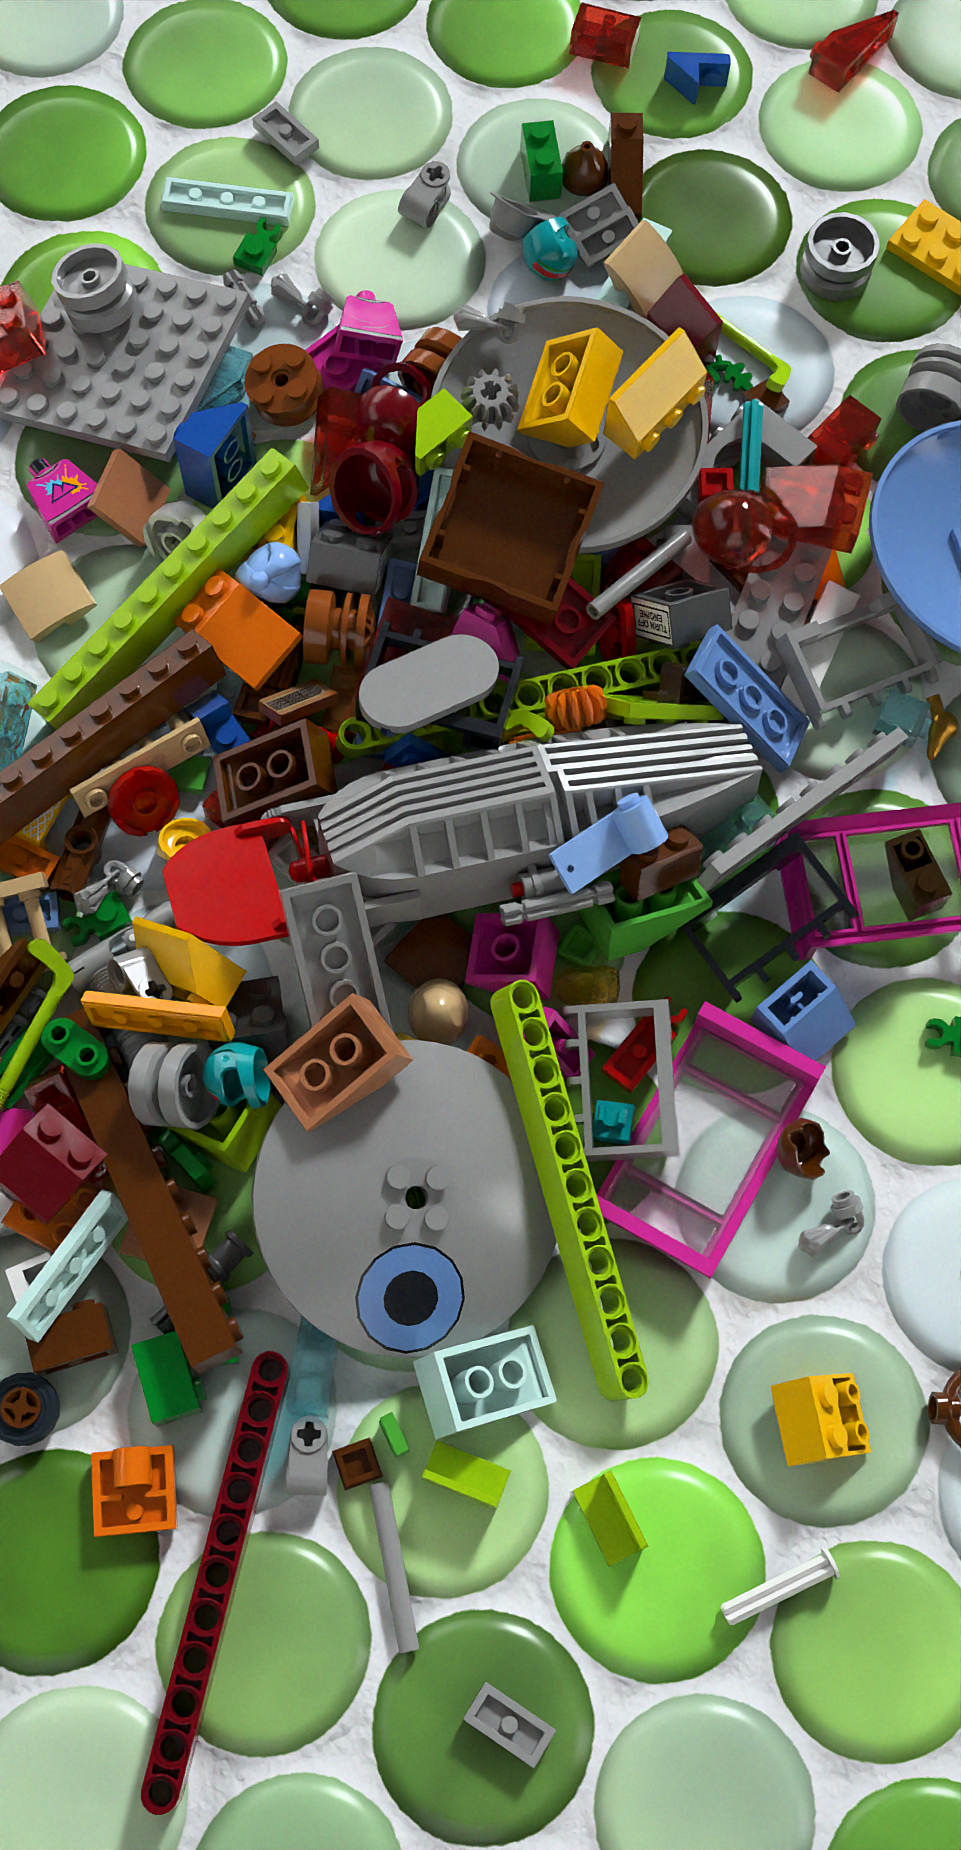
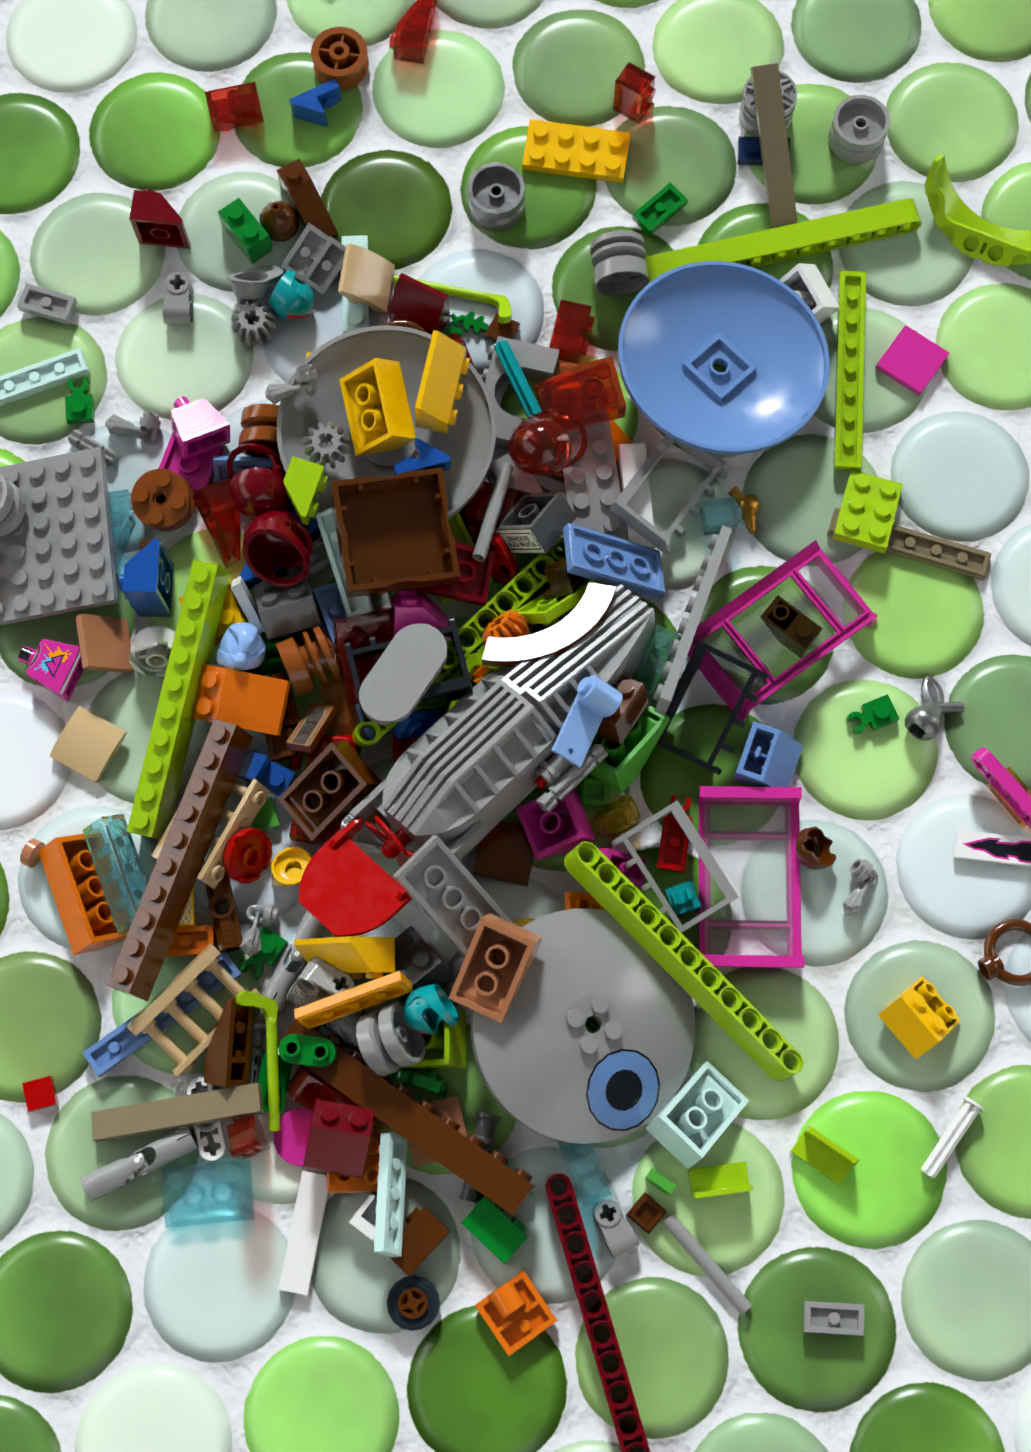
camera: 25 degrees left, 5 degrees up
(438, 1012) = (529, 889): tan hat -> none
(450, 103) = (157, 221): none -> dark red slope
(493, 257) = (256, 331): none -> light grey gear
(597, 466) = (428, 458): none -> blue slope
(629, 739) = (557, 638): none -> tile
(713, 480) = (507, 417): red tile -> none
(752, 38) = (340, 55): none -> dark orange wheel

